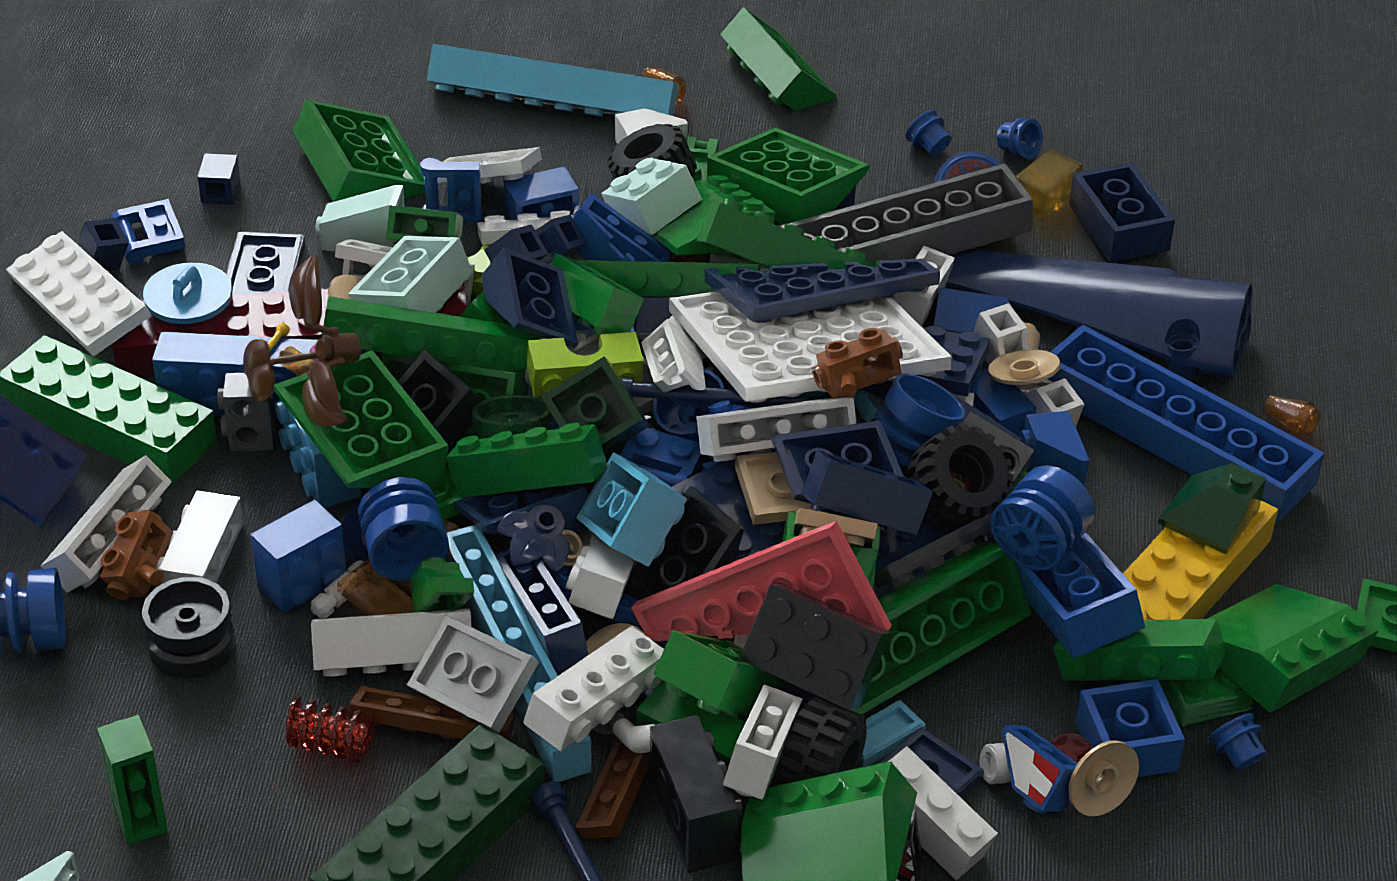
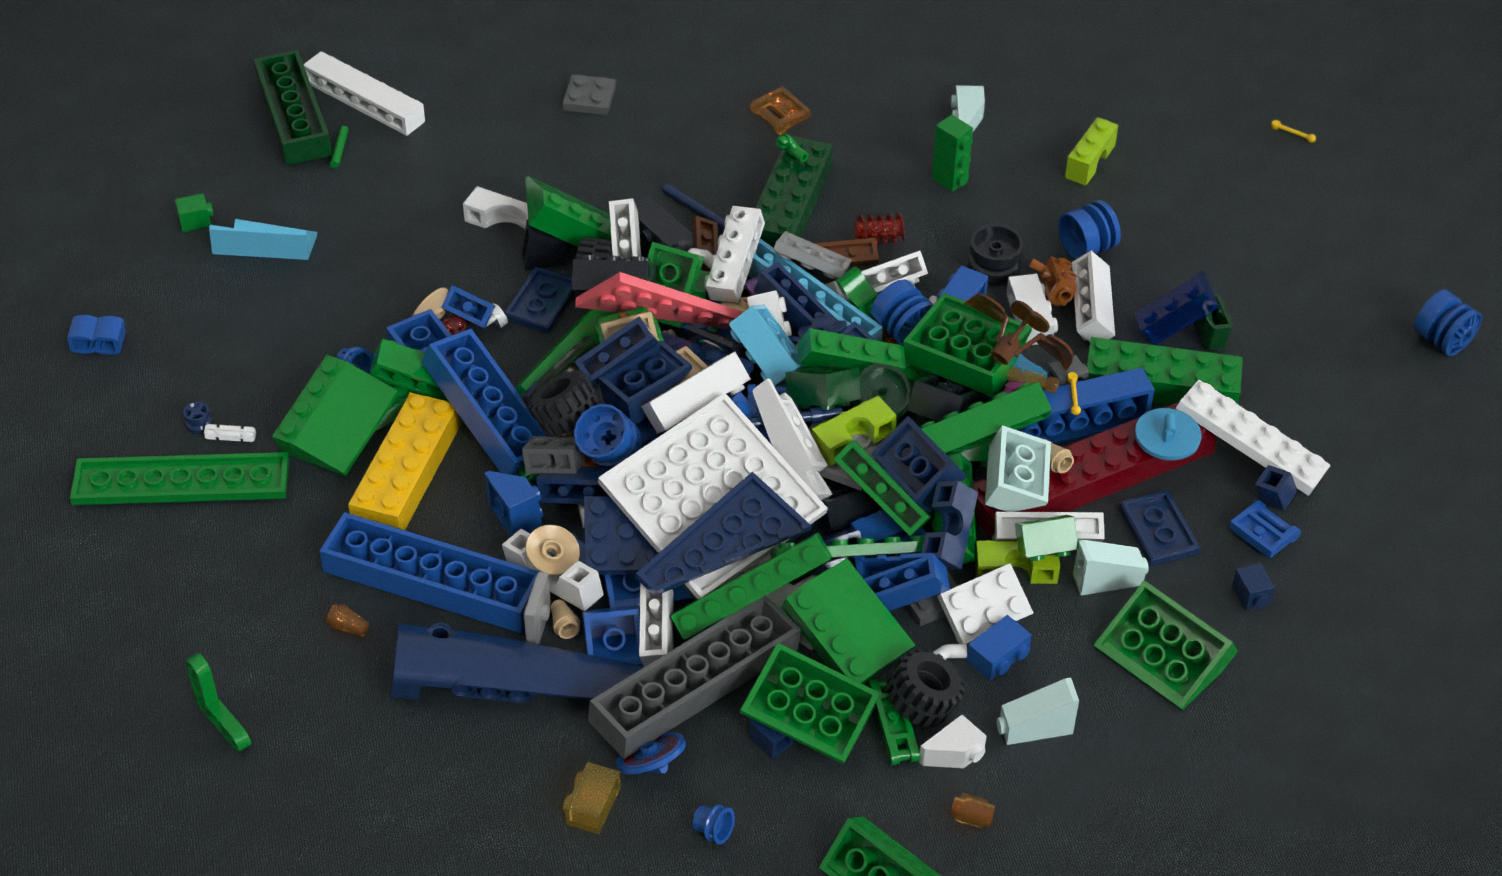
camera: 160 degrees right, 5 degrees up
(391, 858) = (791, 147): none -> green arm
(462, 187) = (1054, 608): blue plate -> none
(505, 163) = (1055, 646): white plate -> none
(544, 122) = (1040, 714): none -> light aqua slope
(547, 82) = (1063, 765): medium azure brick -> none
(653, 194) = (897, 620): light aqua brick -> none
(857, 363) = (655, 420): dark orange brick -> none
(888, 731) = (565, 322): medium azure tile -> none
(945, 821) = (523, 264): white brick -> none
(1020, 130) = (633, 843): blue piece -> none
(1042, 517) = (500, 376): blue wheel -> none
(1061, 323) = (537, 609): none -> light grey plate
(1121, 212) = (519, 770): dark blue brick -> none
(1215, 506) = (392, 473): dark green slope -> none

